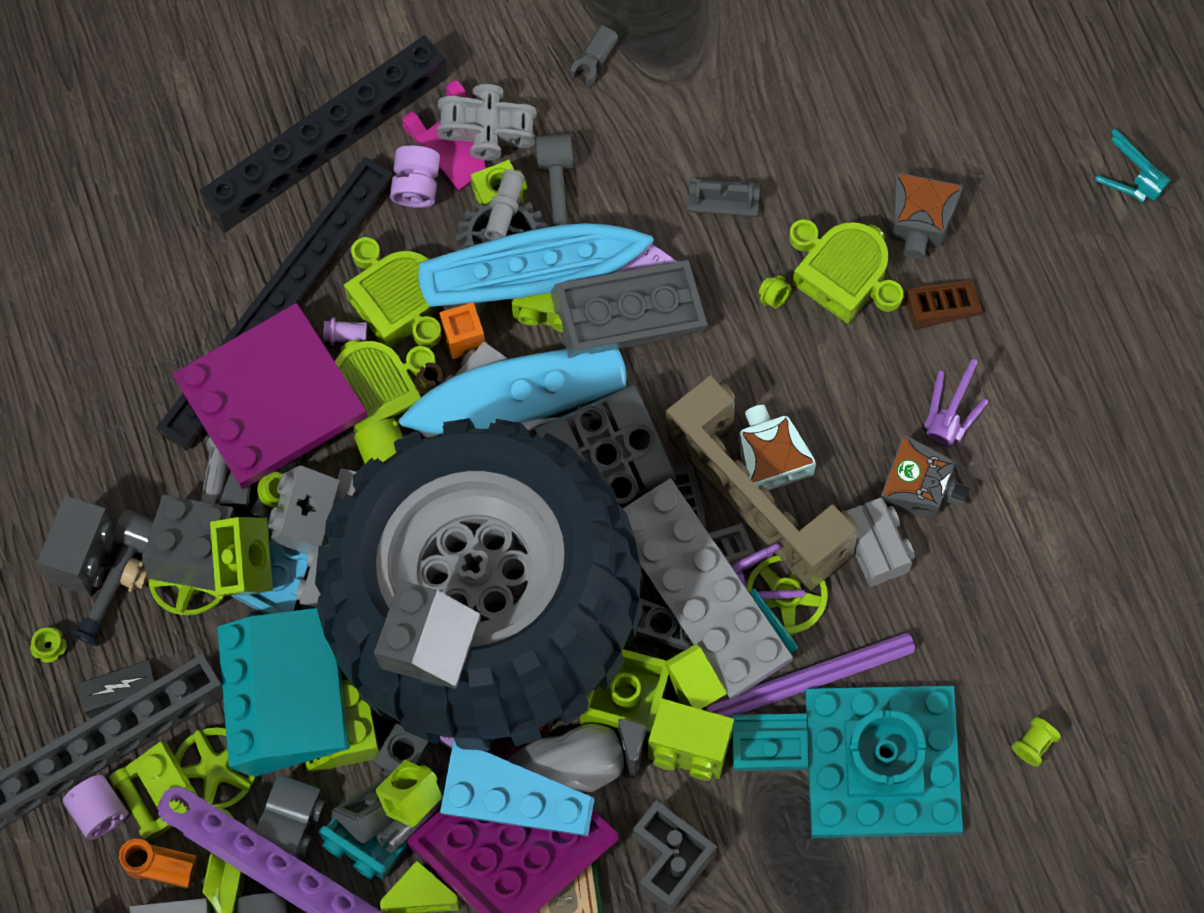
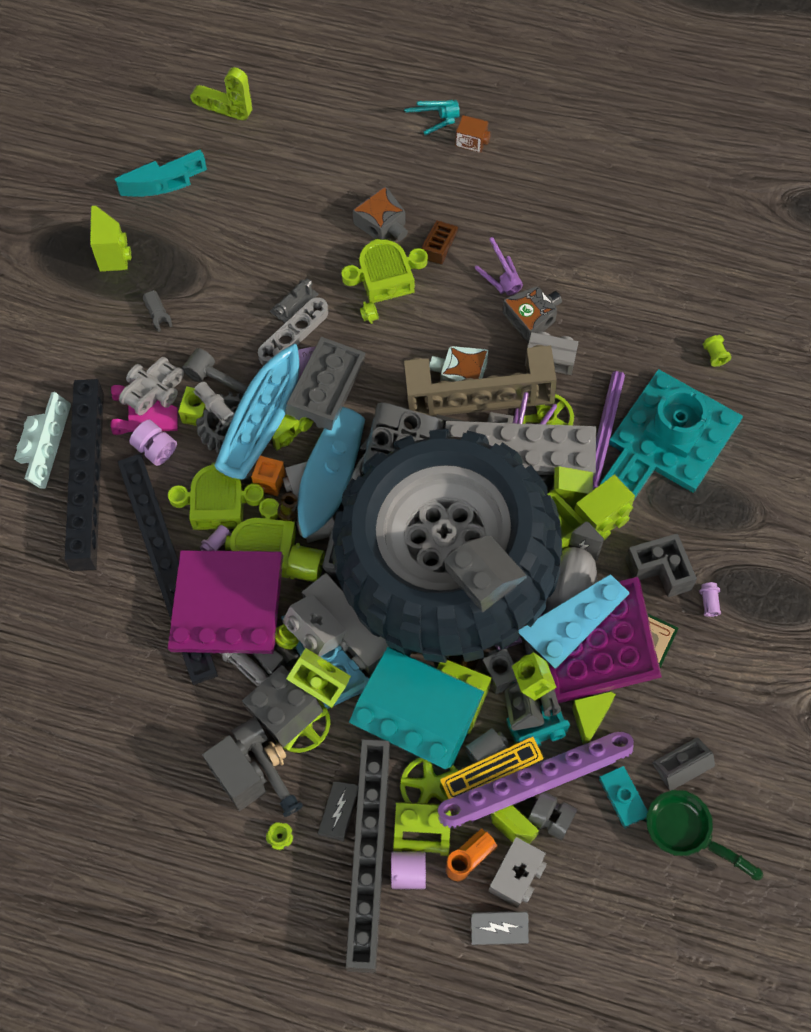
camera: 55 degrees left, 5 degrees down
(269, 820) = (492, 768): none -> sticker
(334, 59) = (41, 440): none -> light aqua bracket
(683, 218) = (289, 328): none -> light grey beam
(1135, 235) = (472, 134): none -> dark orange brick

